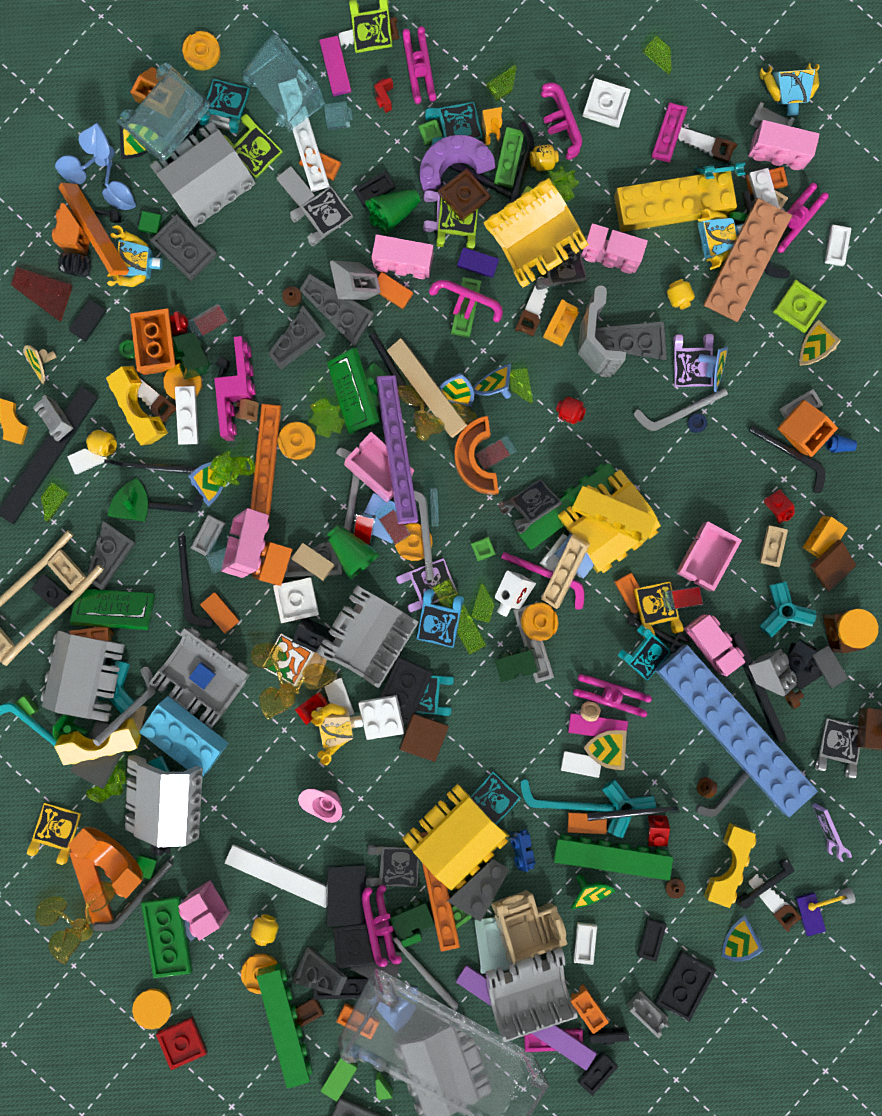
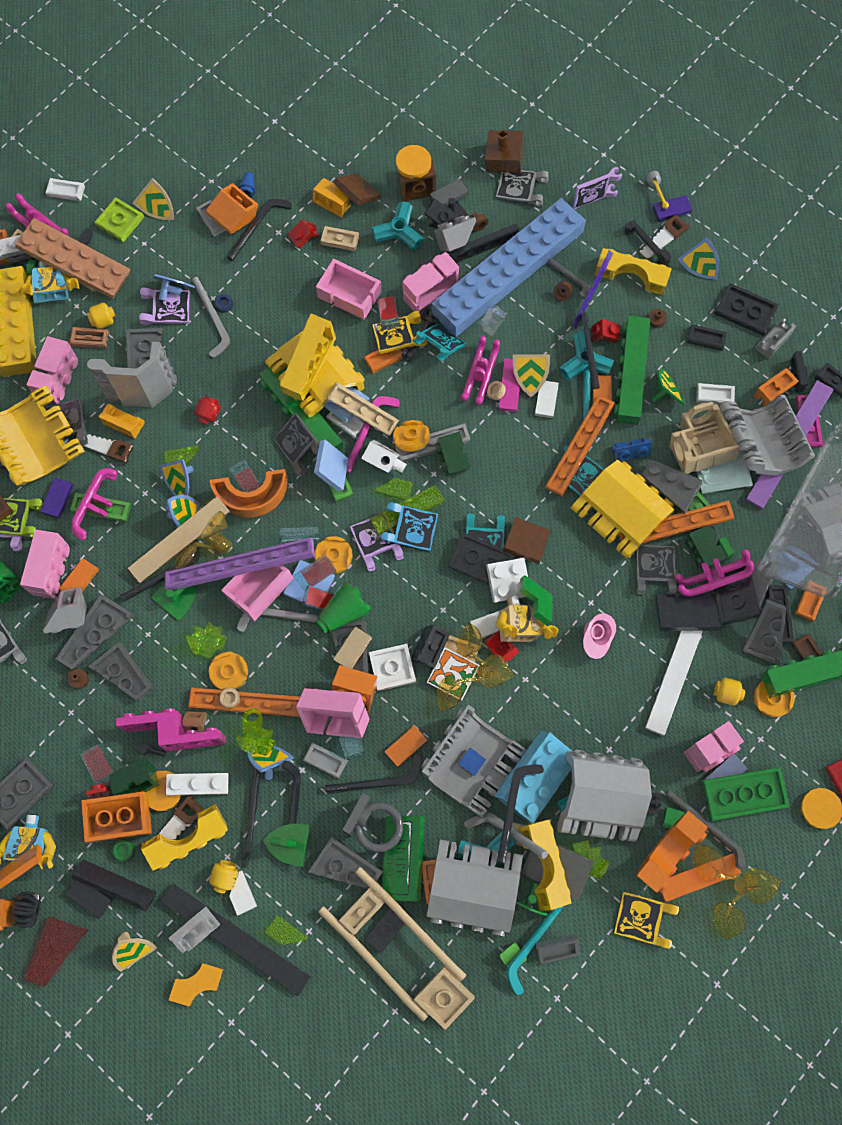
camera: 90 degrees left, 15 degrees down
(29, 750) = (558, 949): none -> dark grey tile
(96, 342) = (114, 885): none -> black tile
(149, 569) = (360, 817): none -> dark grey tile
(177, 719) = (515, 783): none -> black piece
(267, 443) = (229, 698): none -> tan tile
(352, 391) = (179, 612): green tile -> none
(358, 749) = (541, 599): none -> green tile
(368, 636) = (429, 591): light grey hinge -> none
(425, 534) = (339, 539): light grey piece -> none
(437, 987) = (759, 536): light grey piece -> none
(502, 539) = (331, 465): none -> light blue tile
(527, 797) = (580, 445): none -> orange tile
(655, 299) = (89, 340): none -> nougat tile
(667, 704) = (492, 320): none -> clear piece
(715, 825) = (592, 290): none -> dark purple piece

